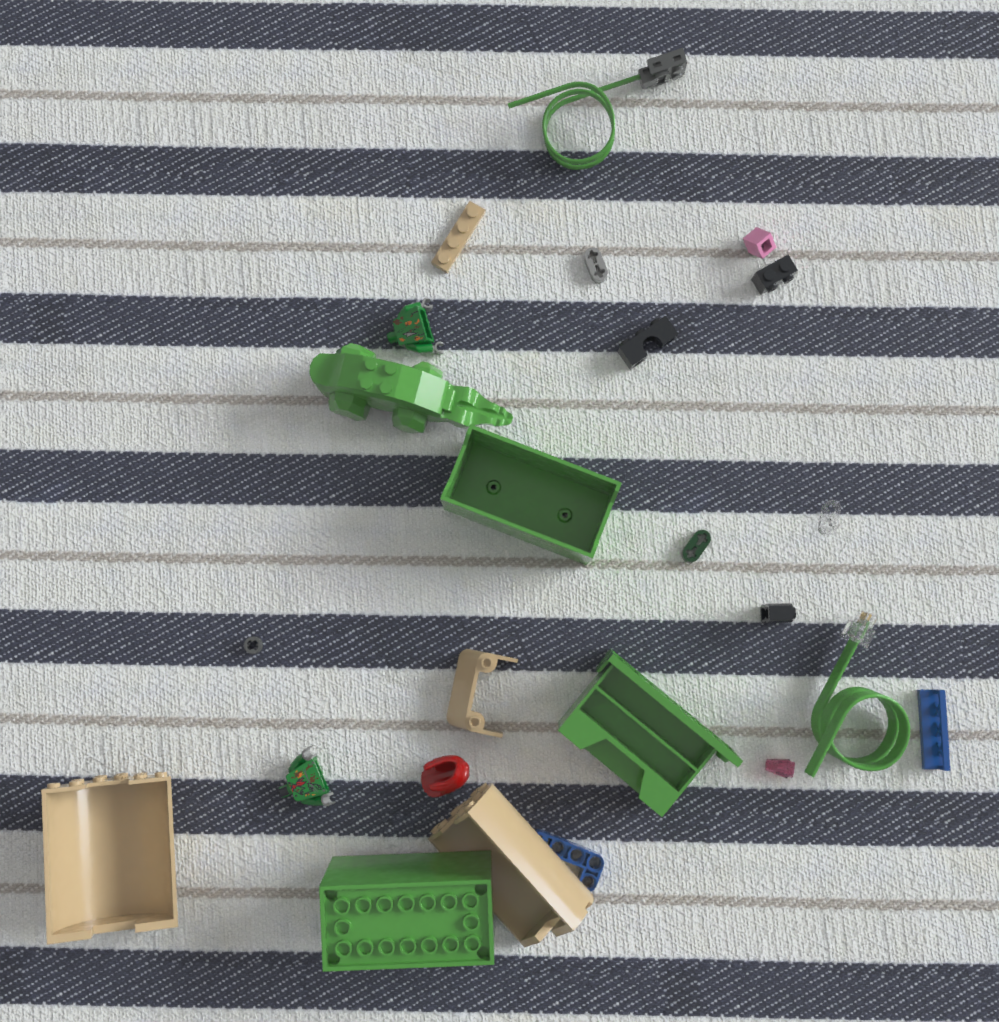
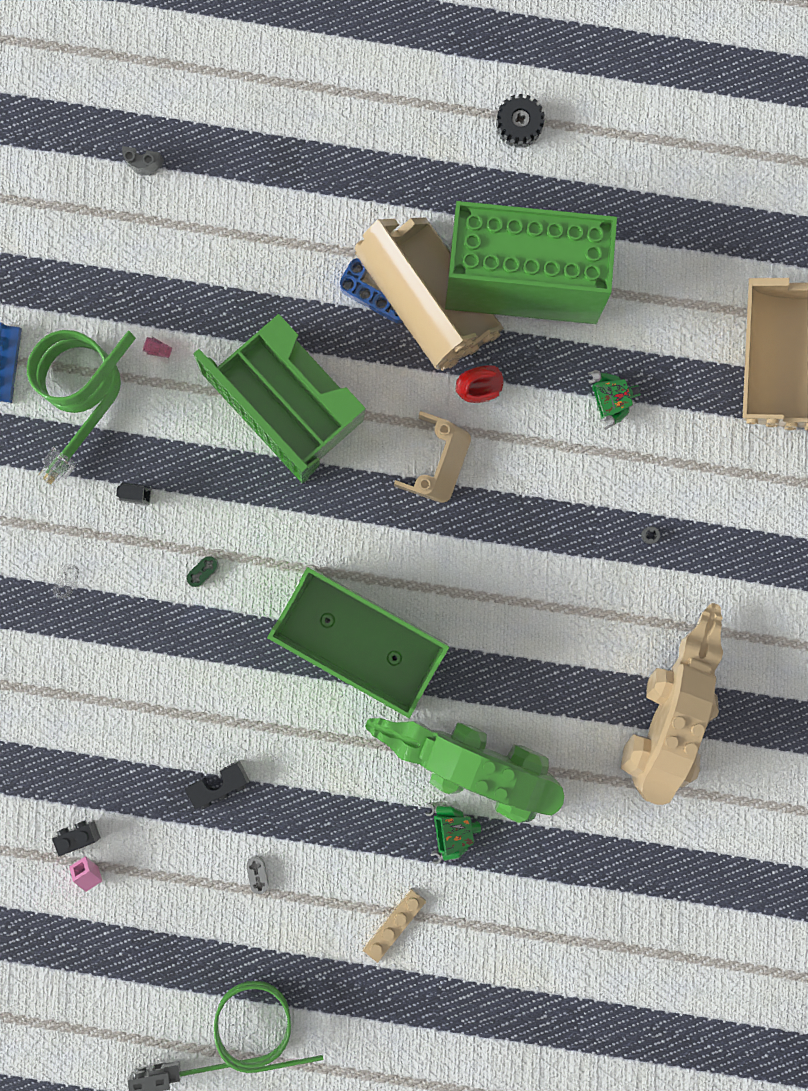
camera: 175 degrees left, 5 degrees up
(201, 468) = (686, 705): none -> tan animal
(830, 962) = (142, 164): none -> dark grey cylinder

